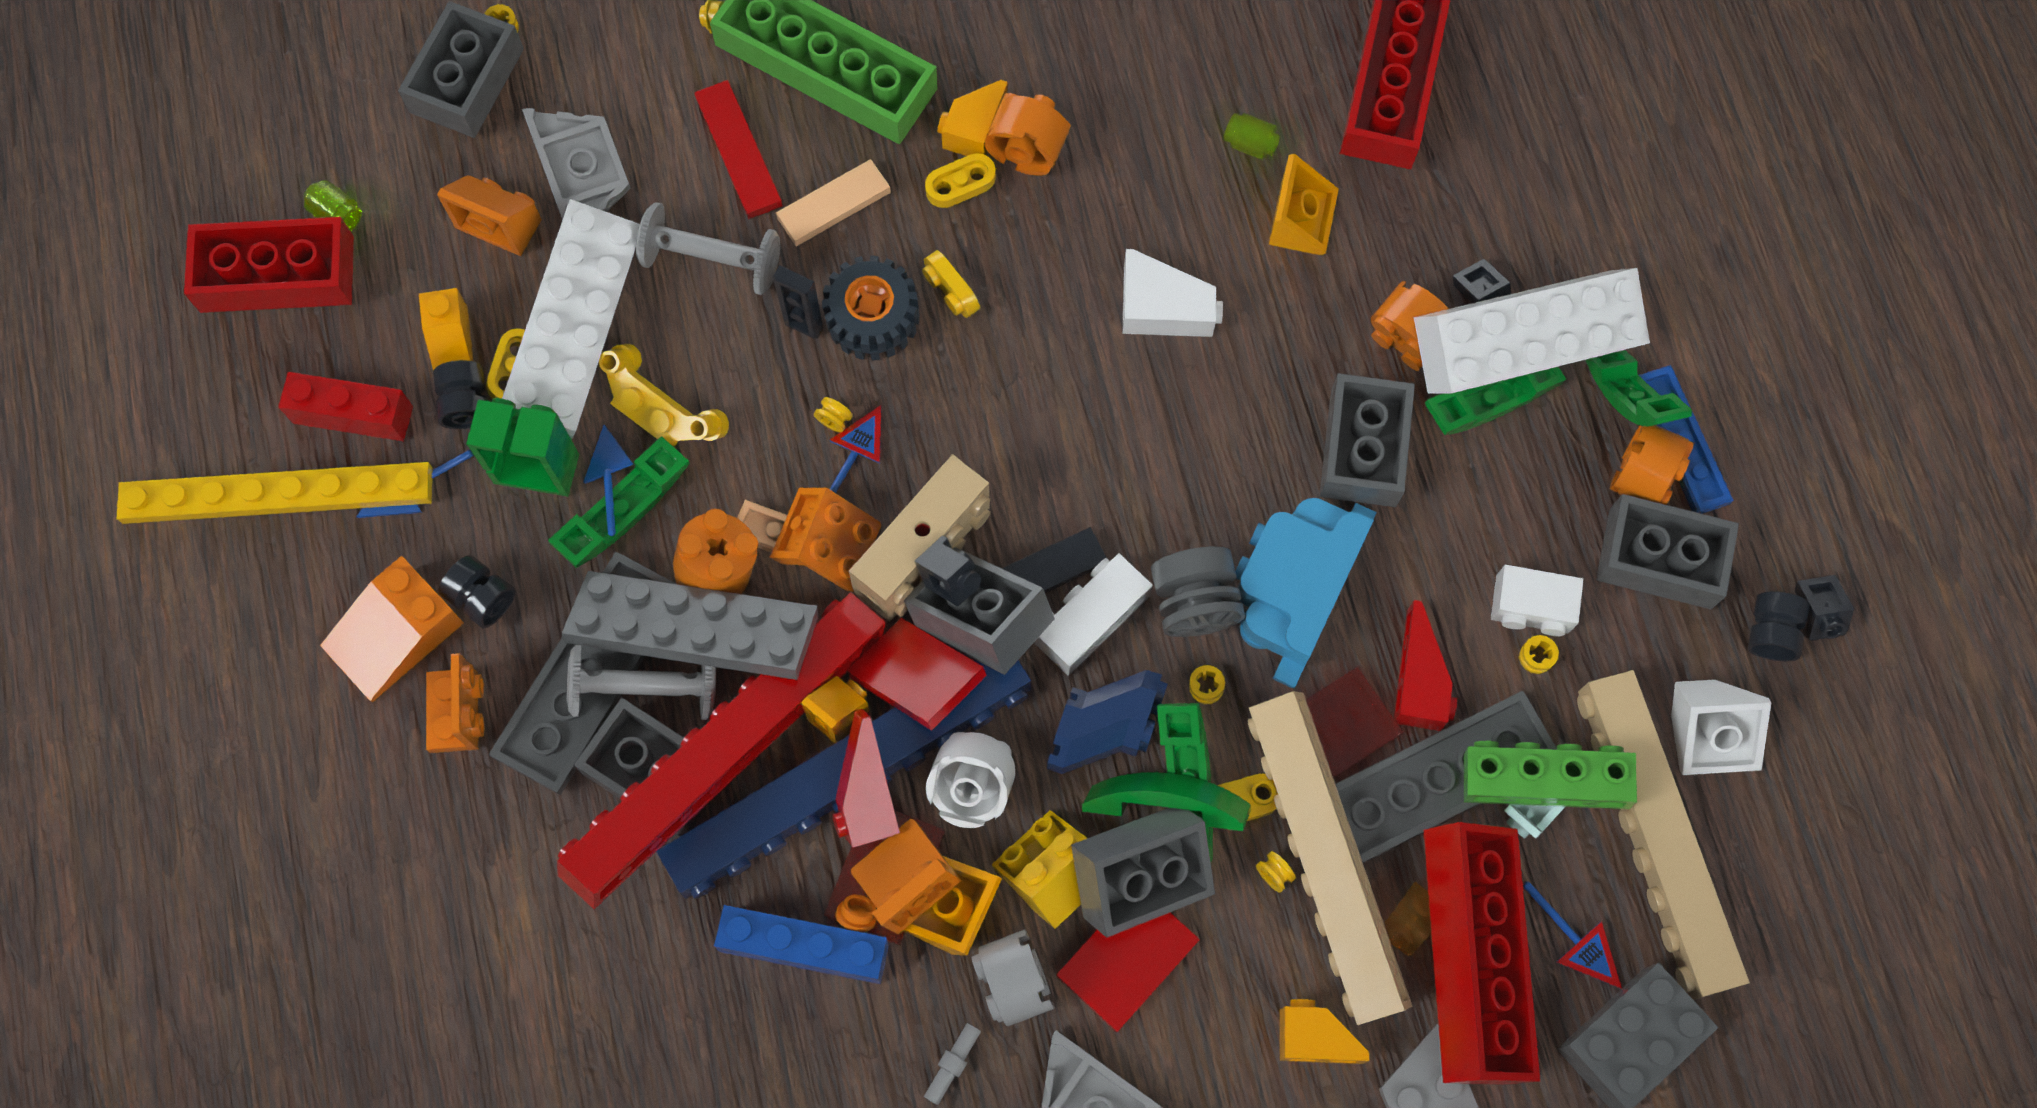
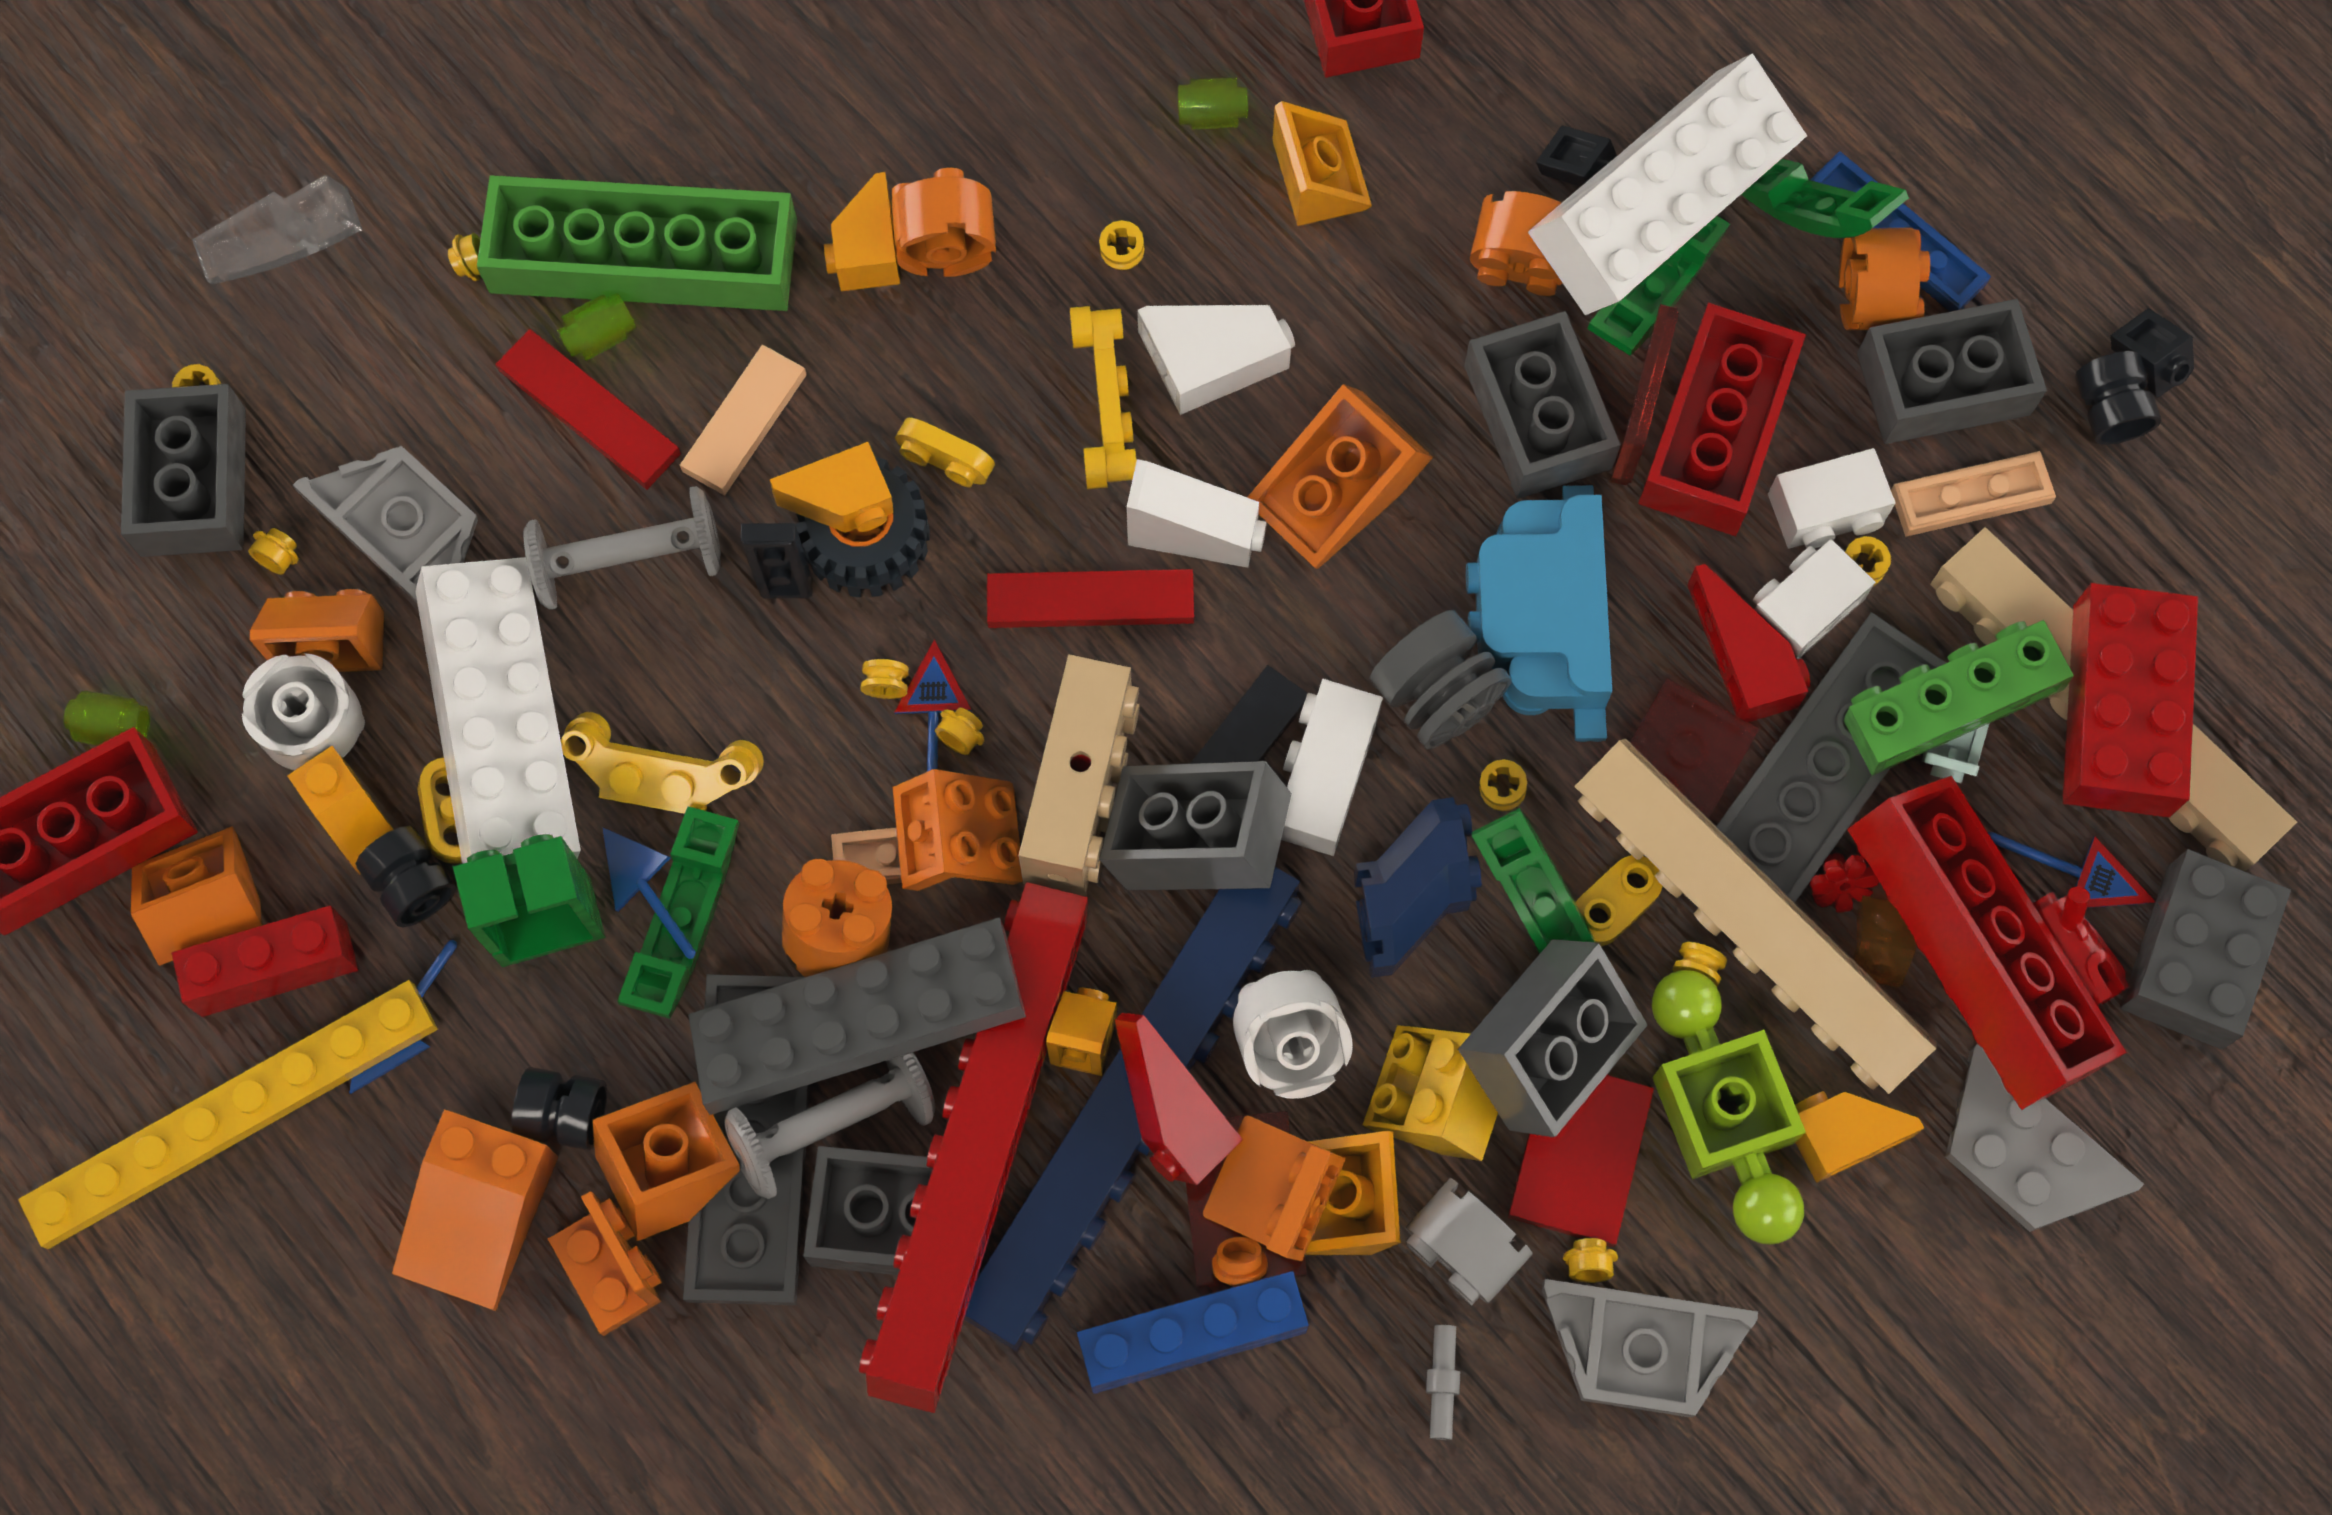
camera: 25 degrees left, 0 degrees up
(326, 343) = (194, 895): none -> orange slope
(452, 255) = (286, 687): none -> white brick
(492, 147) = (274, 550): none -> yellow plate
(522, 657) = (663, 1159): none -> orange slope
(769, 97) = (596, 326): none -> clear neon green brick
(860, 274) = (837, 491): none -> light orange slope
(864, 472) = (960, 730): none -> yellow plate
(917, 673) = (1158, 940): red tile -> none
(948, 572) = (1140, 798): black brick -> none
(957, 178) = (883, 321): yellow plate -> none
(997, 426) = (1090, 598): none -> red tile
(1072, 321) = (1110, 461): none -> yellow plate
(1089, 403) = (1191, 517): none -> white slope
(1094, 1033) = (1590, 1261): none -> yellow plate
(1138, 192) = (1134, 238): none -> yellow bush
(1205, 423) = (1338, 475): none -> orange slope
(1218, 805) = (1531, 930): green slope -> none
(1233, 1057) = (1741, 1071): none -> lime brick
(1404, 864) = (1843, 882): none -> red plant
(1441, 467) = (1645, 395): none -> clear red tile
(1487, 508) = (1722, 419): none -> red brick
(1487, 660) = (1814, 597): none -> white brick
(1549, 992) = (2083, 944): none -> red piece
(1641, 644) = (1973, 493): none -> light nougat tile
(1671, 839) = (2131, 700): none -> red brick
(1718, 727) = (2111, 540): white slope -> none

